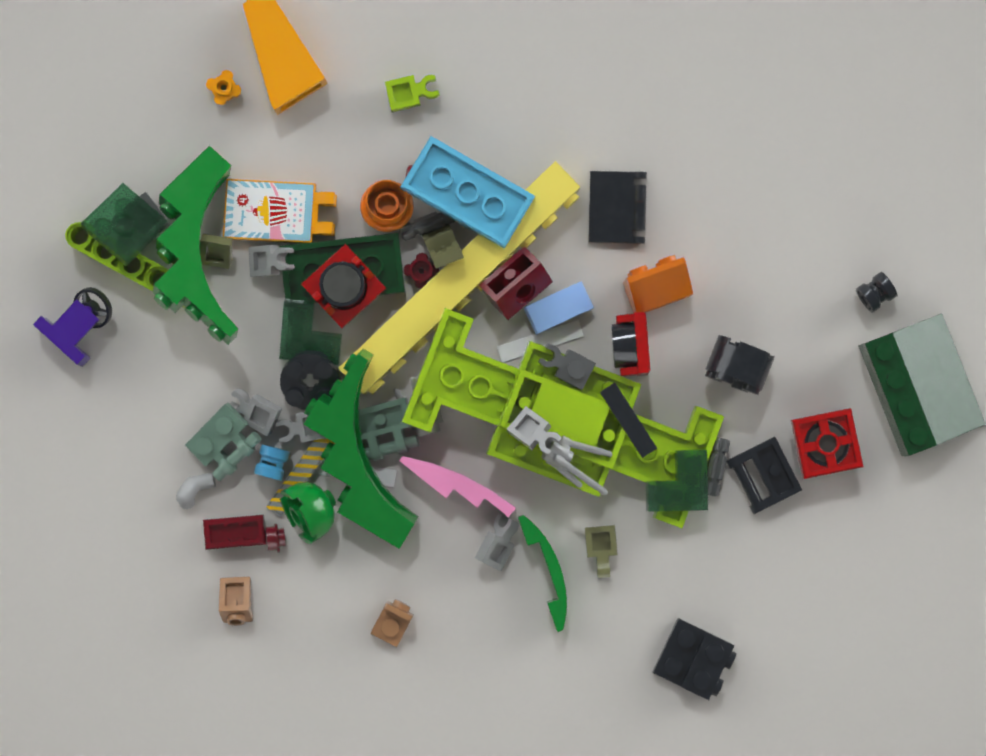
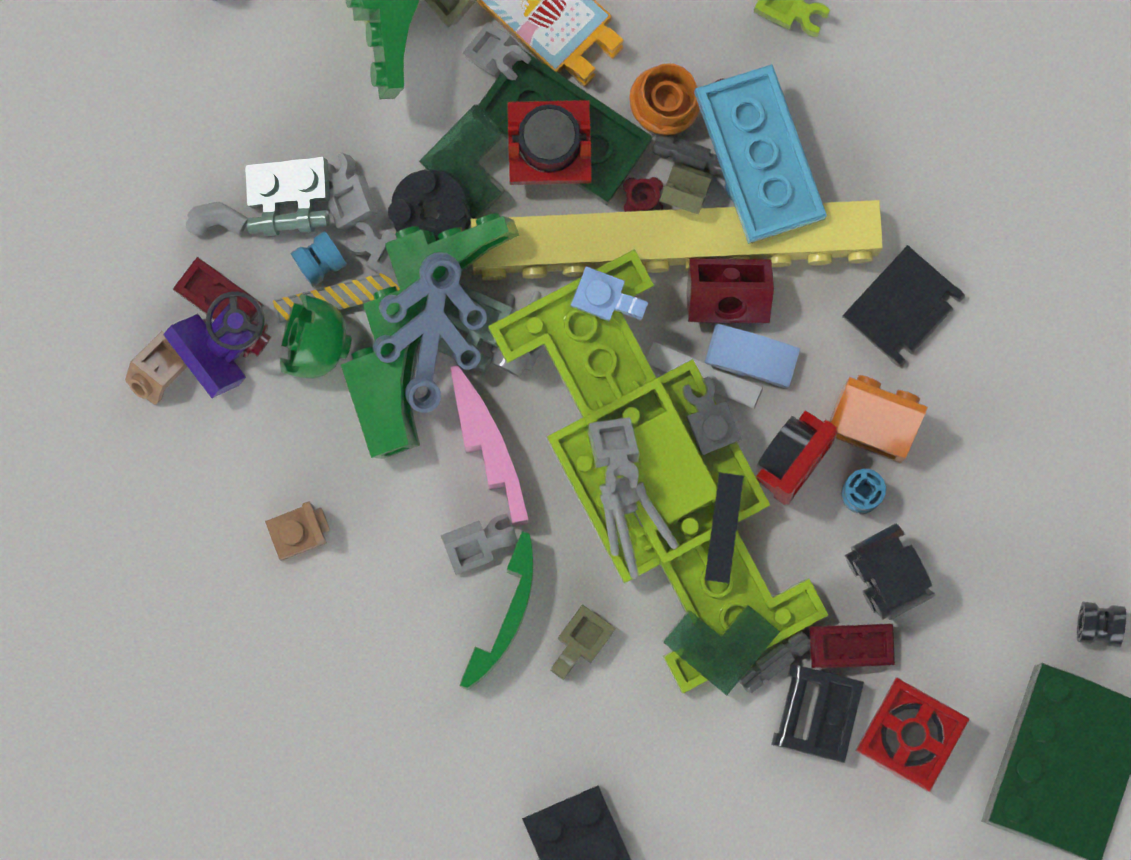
camera: 40 degrees right, 5 degrees down
(257, 563) = (213, 347): none -> dark purple piece
(369, 449) = (431, 324): none -> sand blue plant
(450, 349) = (601, 295): none -> light blue plate
(681, 334) = (859, 496): none -> dark azure wheel
(751, 422) = (852, 645): none -> dark red plate

